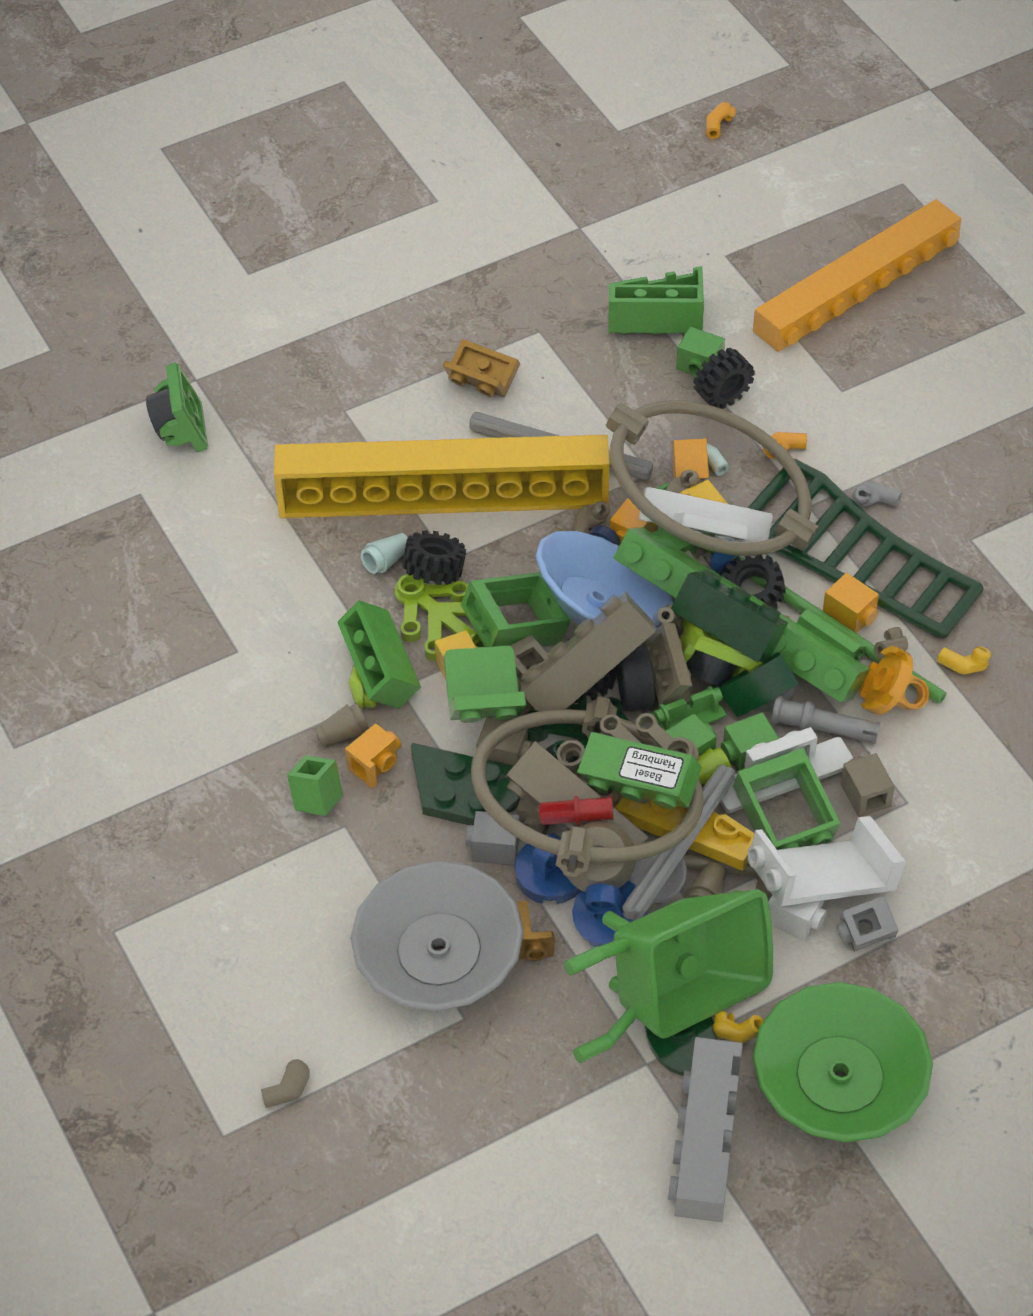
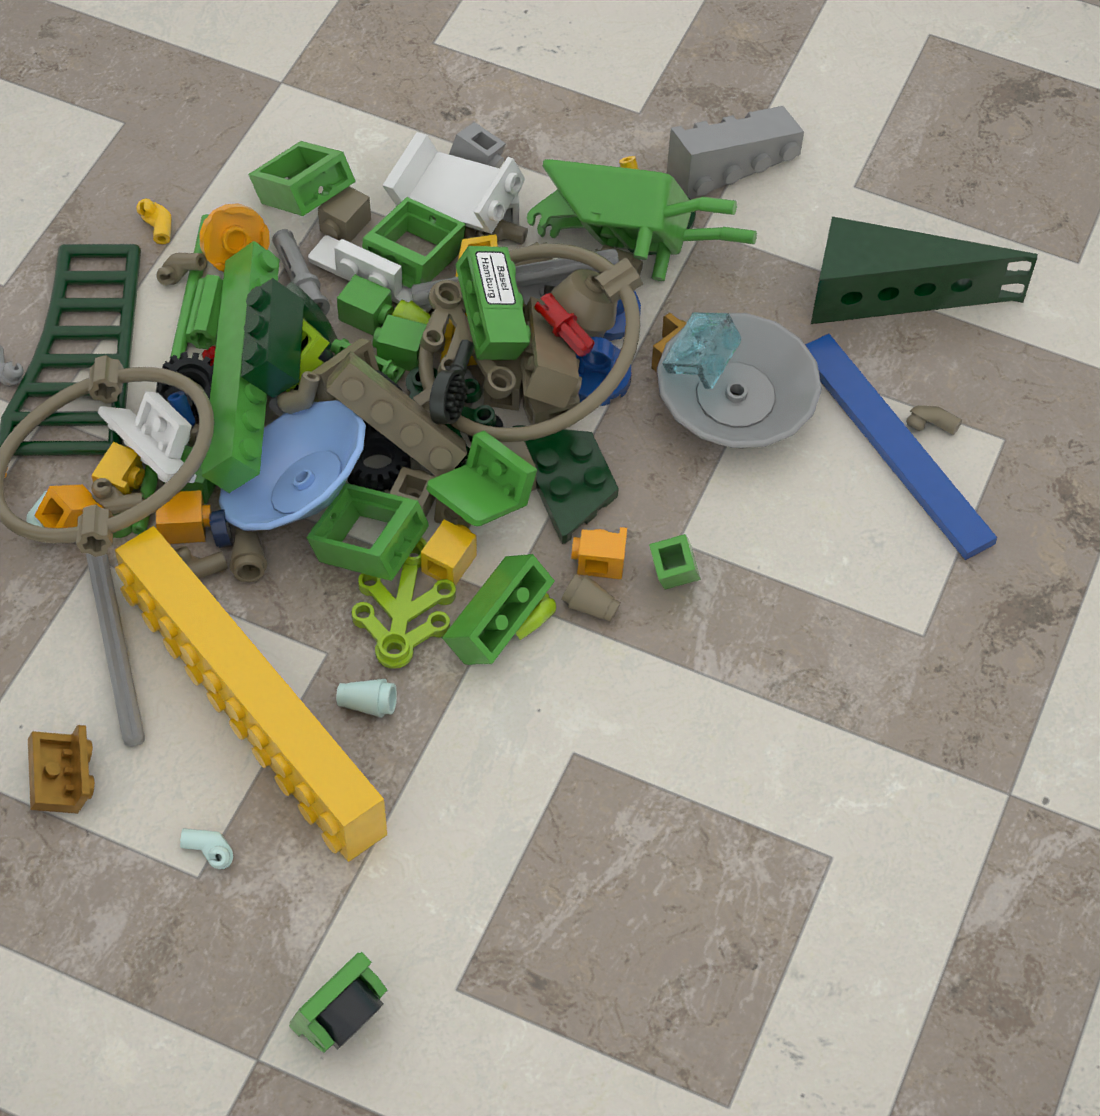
camera: 130 degrees left, 5 degrees up
(291, 1038) = (900, 449): none -> blue tile
(359, 422) = (210, 843): none -> light aqua arm
(434, 557) = (362, 653): black tyre -> none
(459, 1137) = (900, 271): none -> dark green piece
(479, 910) = (704, 347): none -> clear light blue bracket
(490, 841) = (610, 421): light grey brick -> none
(580, 701) = (450, 389): none -> pearl dark grey piece
(849, 1032) = (615, 97): bright green dish -> none
(851, 603) = (156, 315): light orange brick -> none
(899, 775) = (307, 169): none -> bright green window

